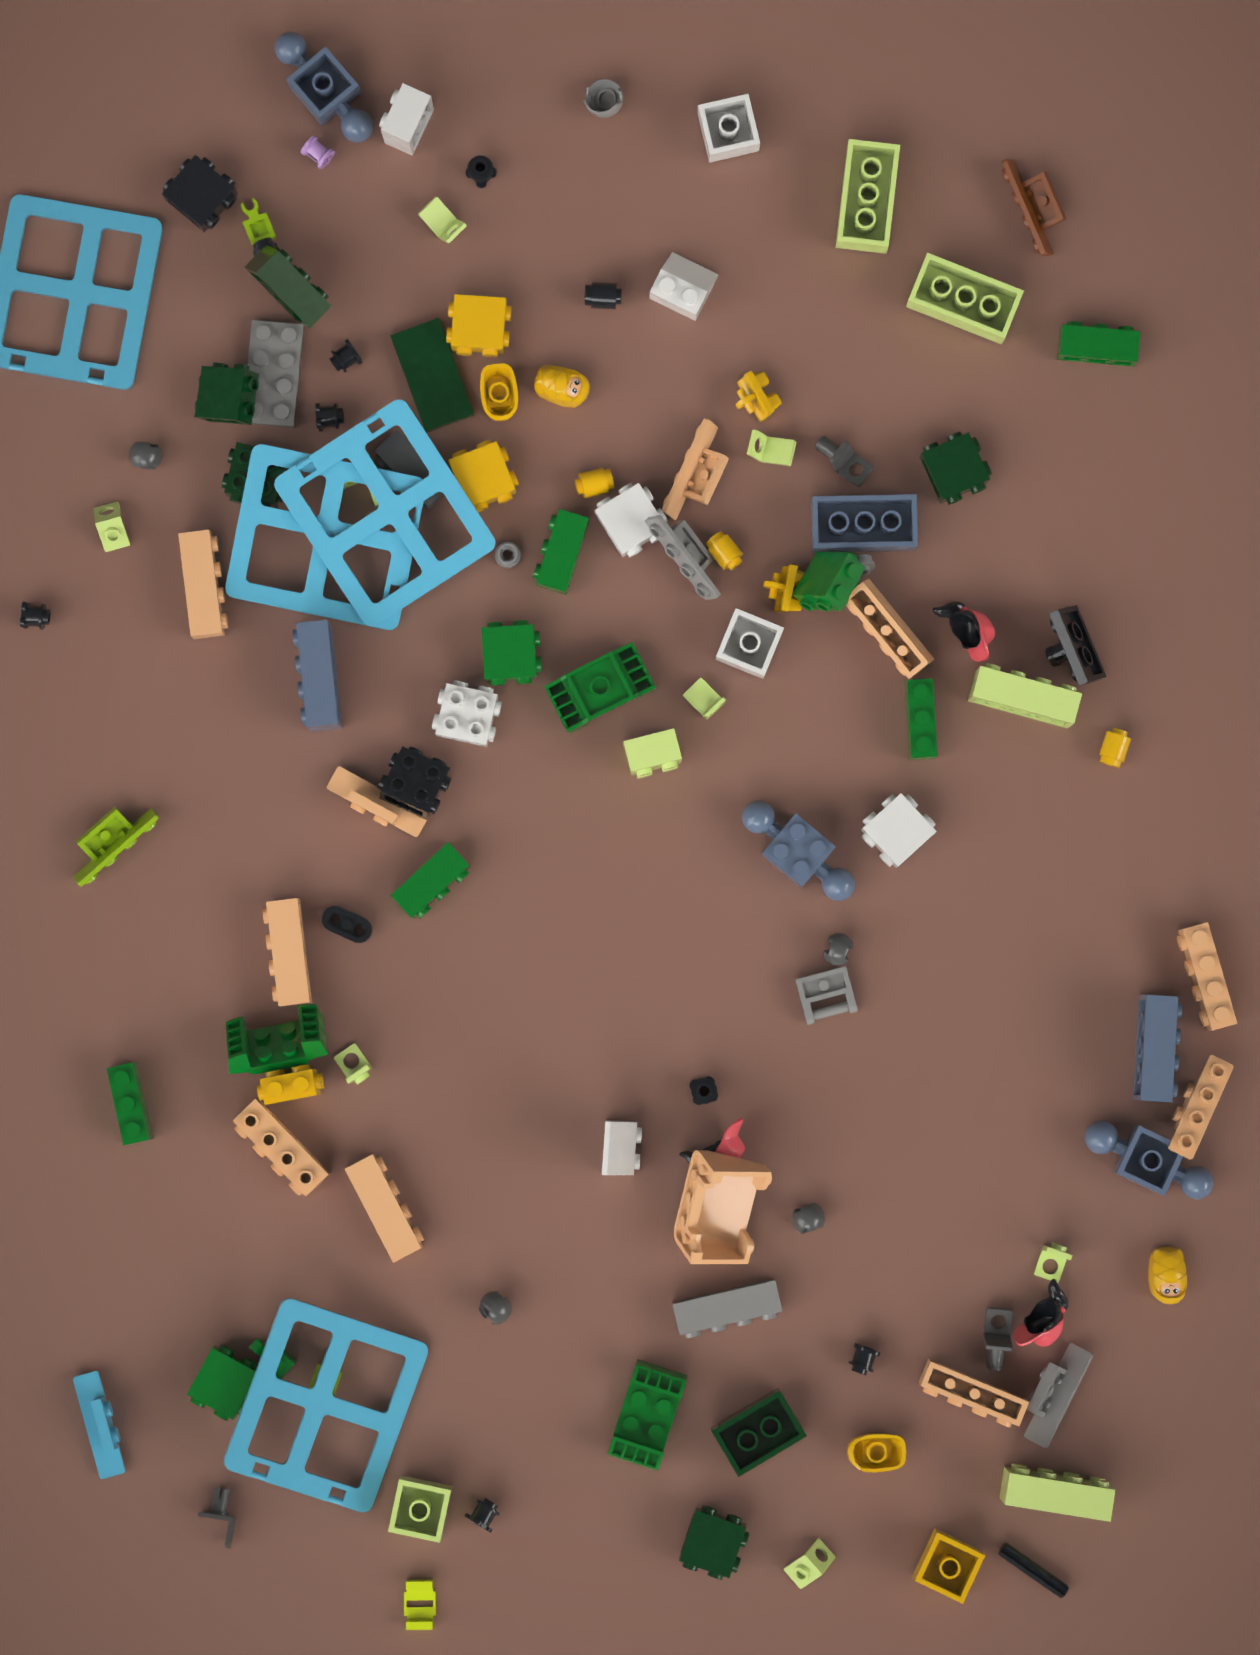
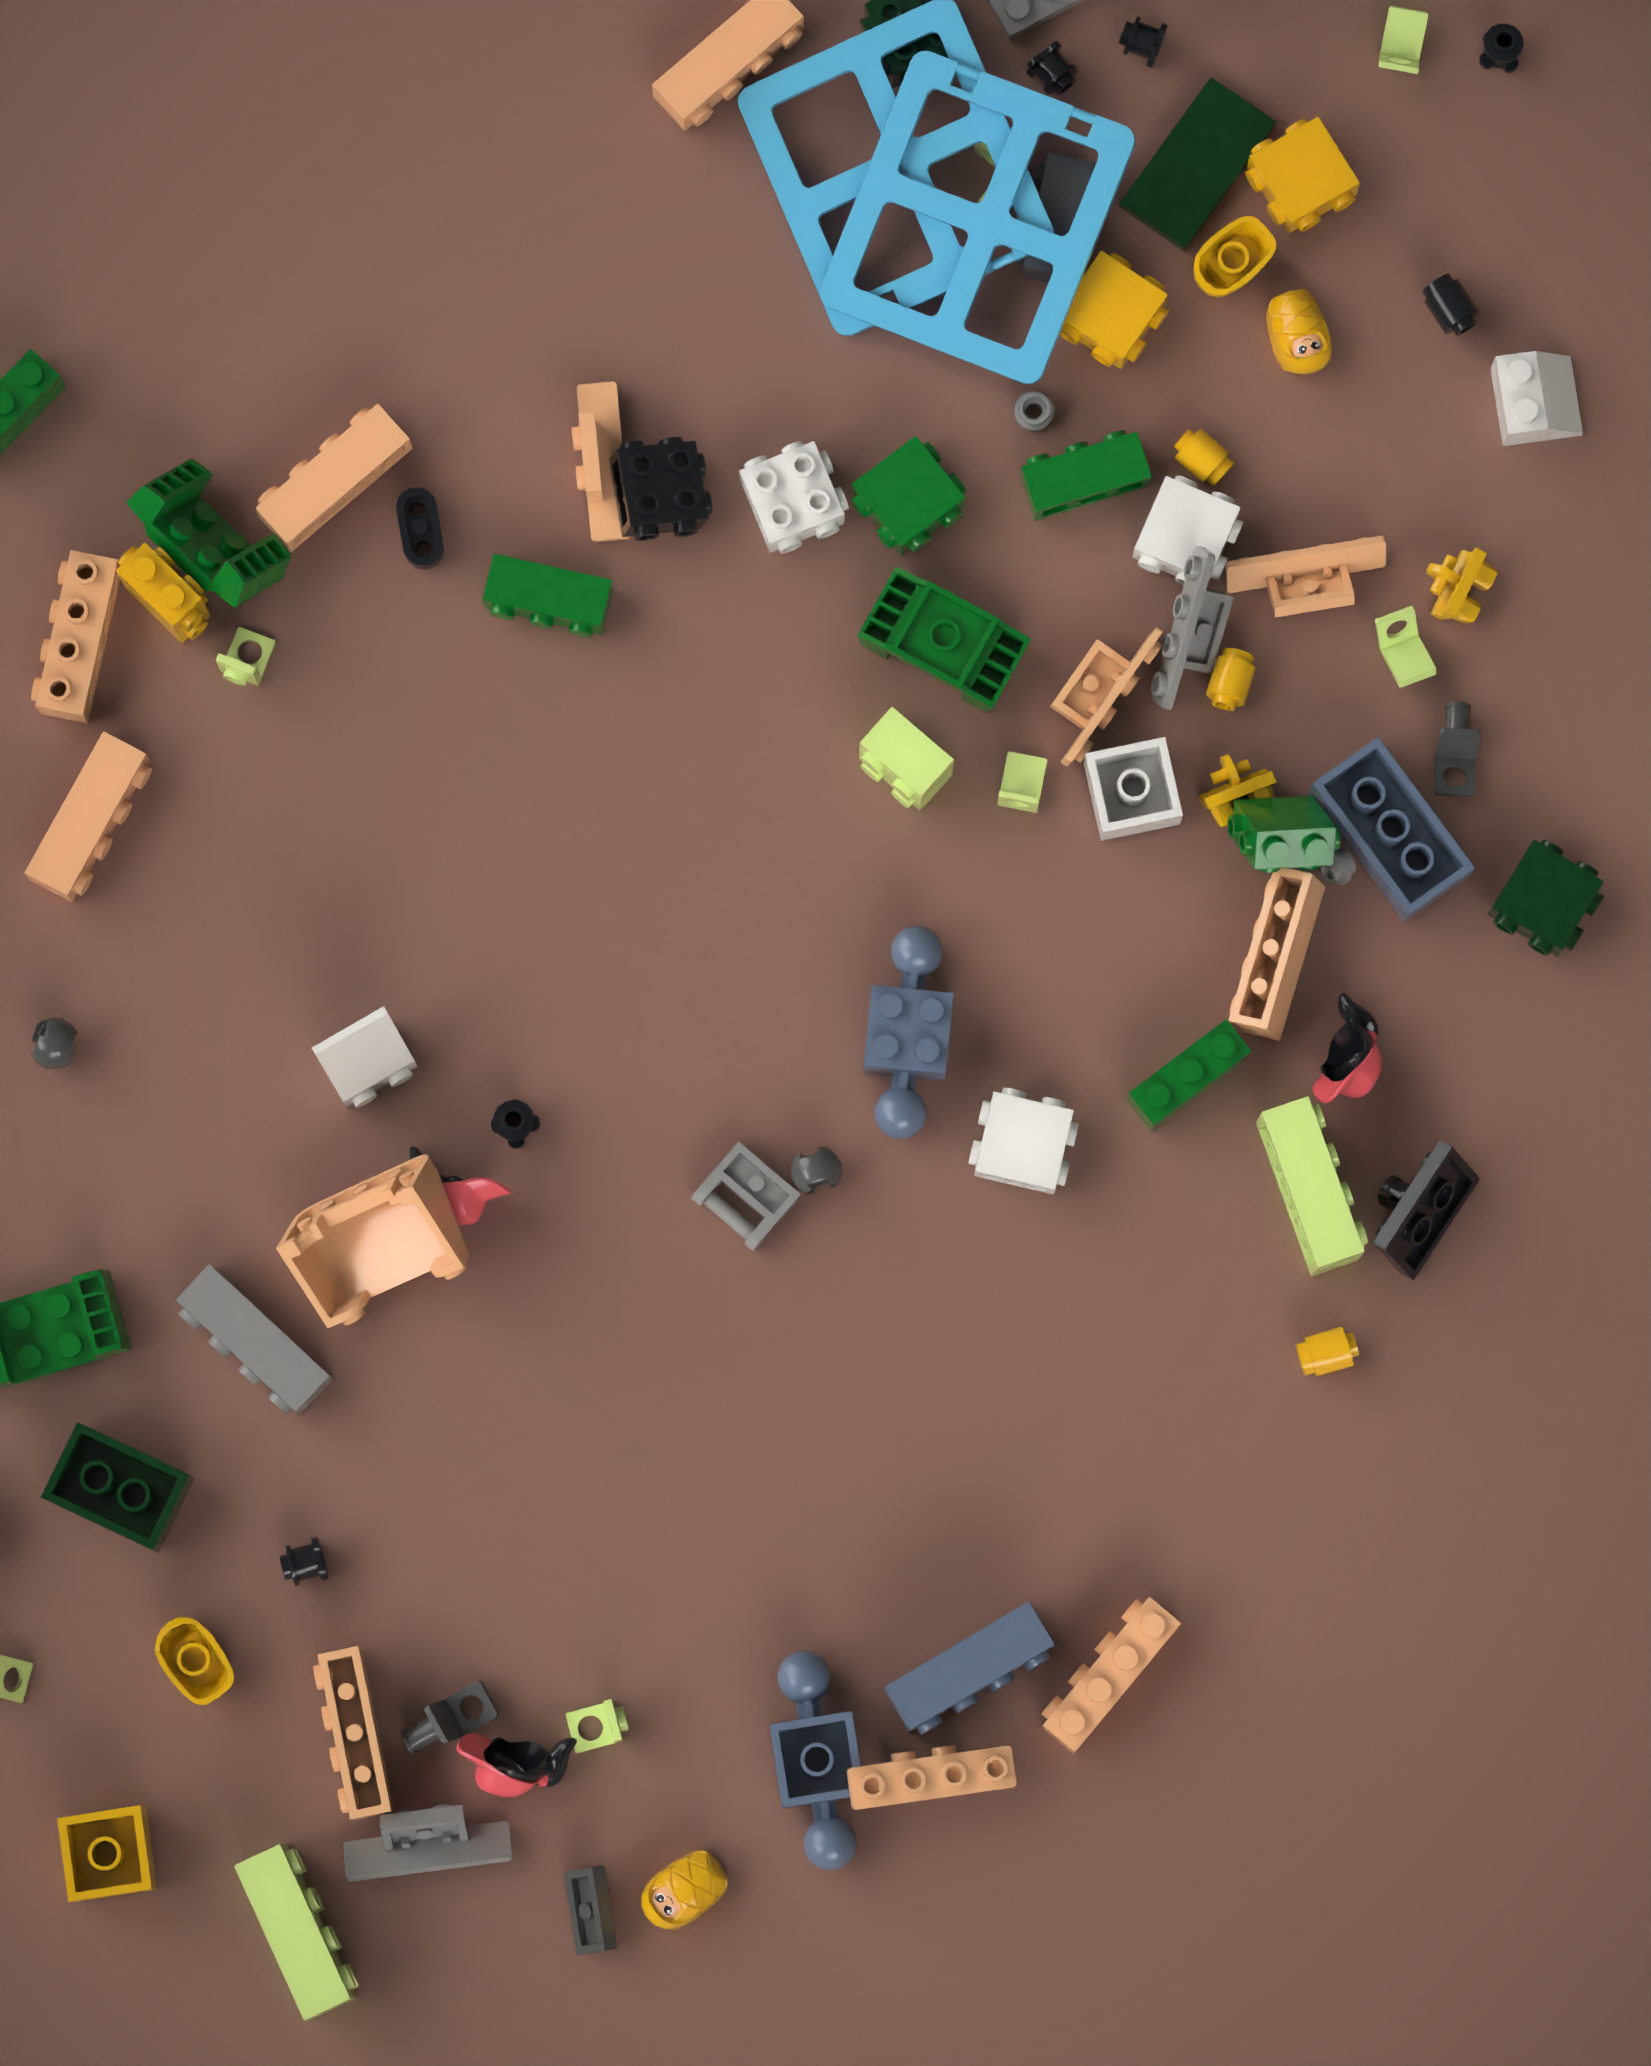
camera: 55 degrees right, 5 degrees down
(108, 839) = (327, 160): lime bracket -> none
(318, 674) = (712, 275): sand blue brick -> none
(681, 625) = (1094, 688): none -> light nougat bracket
(808, 1218) = (440, 1367): dark grey piece -> none
(1033, 1570) = (176, 1974): black axle -> none
(1146, 1331) = (590, 1910): none -> dark grey plate

